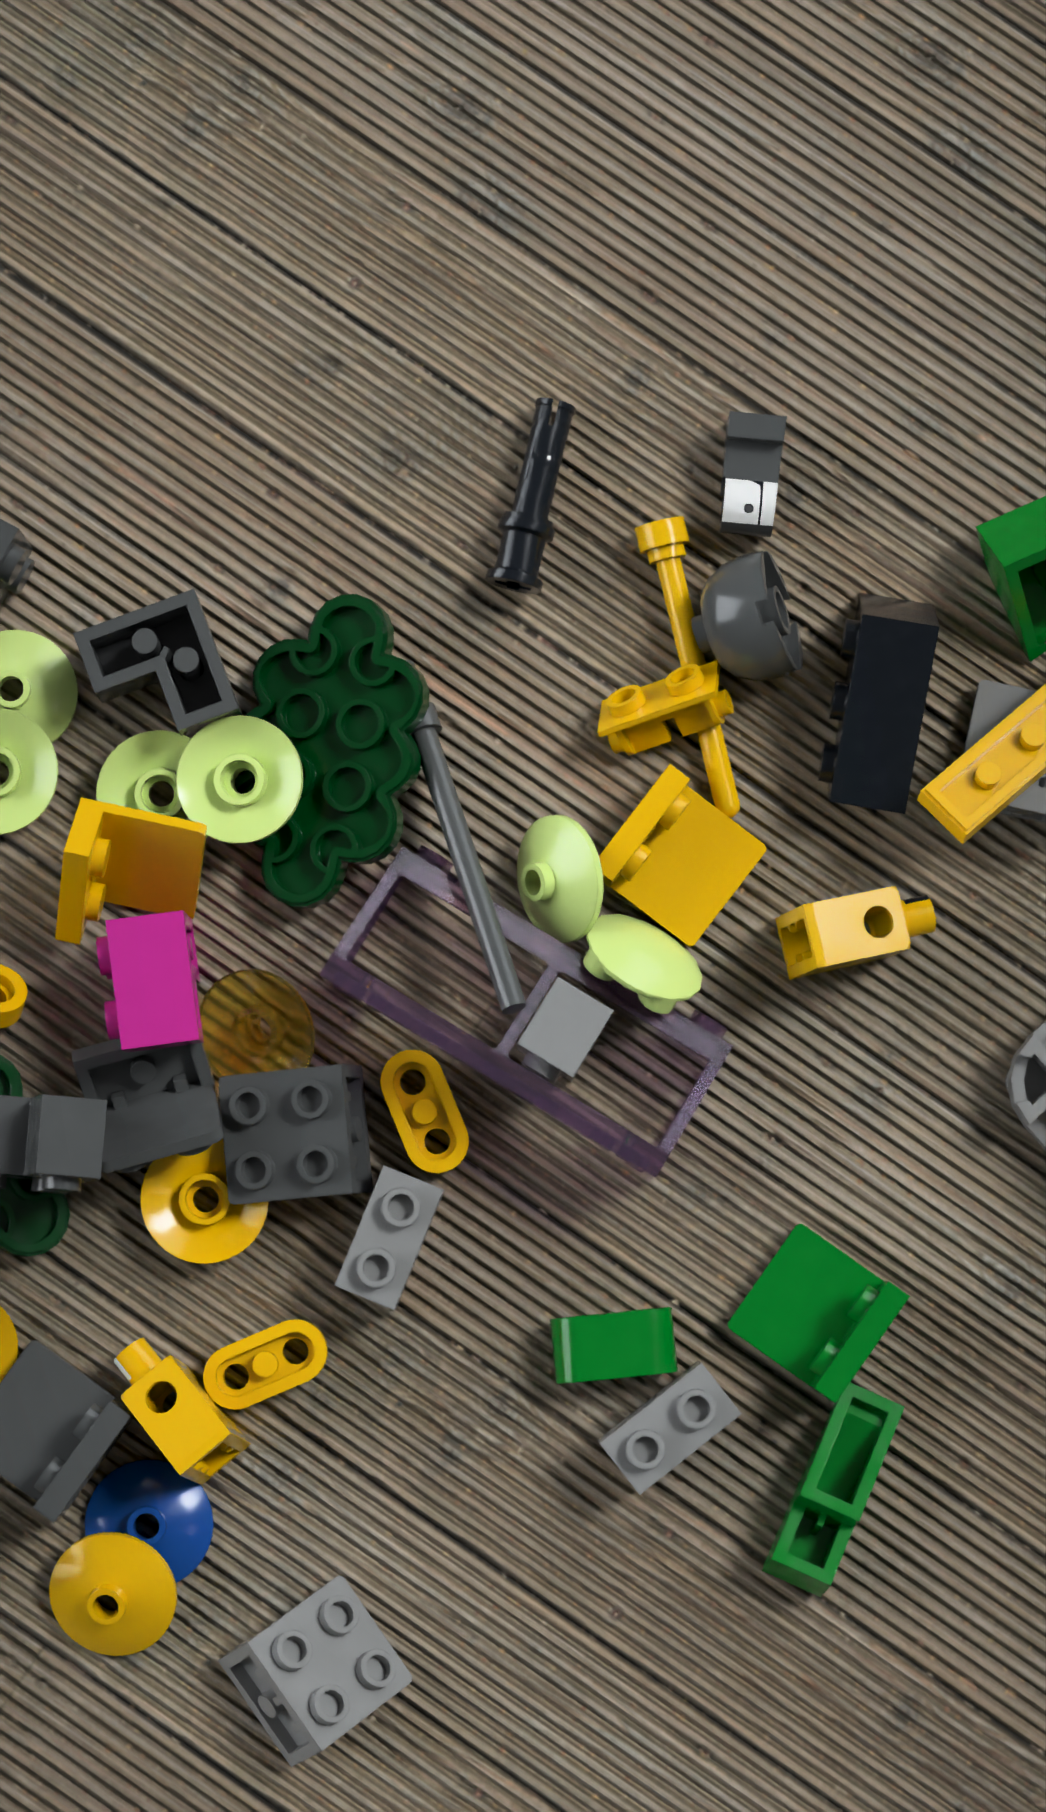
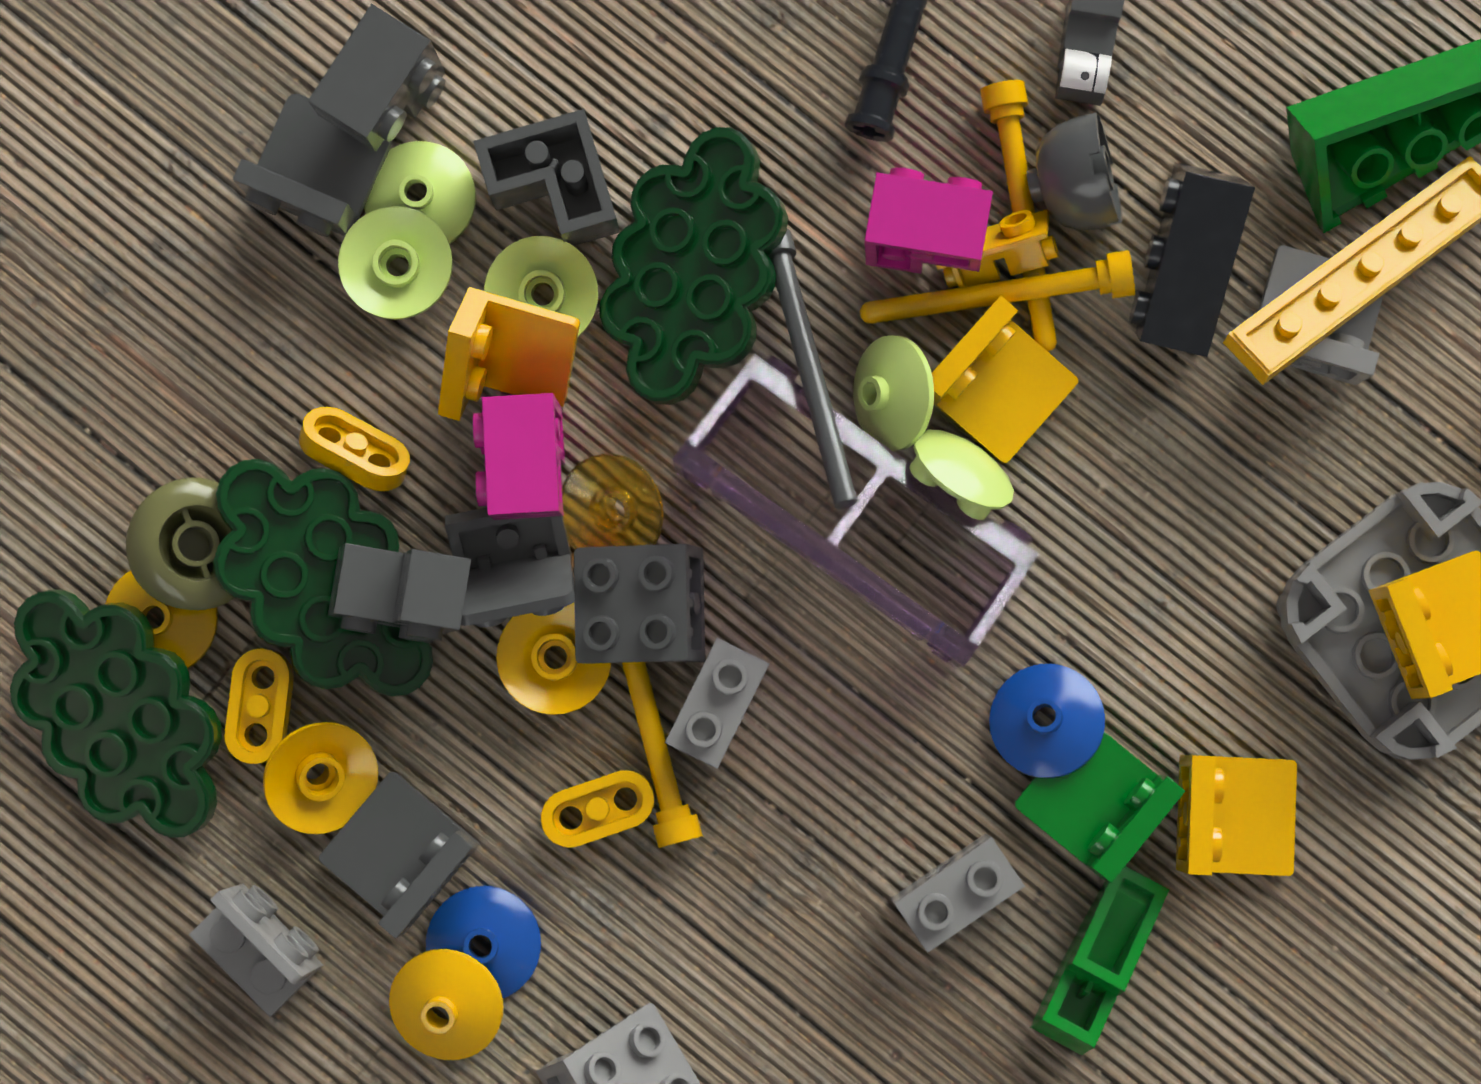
camera: 10 degrees right, 0 degrees up
(196, 1430) = (531, 865): yellow torso -> none
(209, 773) = (591, 267): yellowish green dish -> none
(351, 1369) = (674, 818): none -> yellow piece
(425, 1111) = (756, 593): yellow plate -> none
(562, 1032) = (887, 528): light grey brick -> none
(582, 688) = (926, 222): none -> dark pink brick
(613, 1345) = (911, 815): green beam -> none
(781, 1249) = (1050, 749): none -> blue dish
(791, 731) = (1109, 276): none -> yellow piece
(833, 931) = (1150, 458): yellow torso -> none
(974, 1319) = (1236, 815): none -> yellow bracket

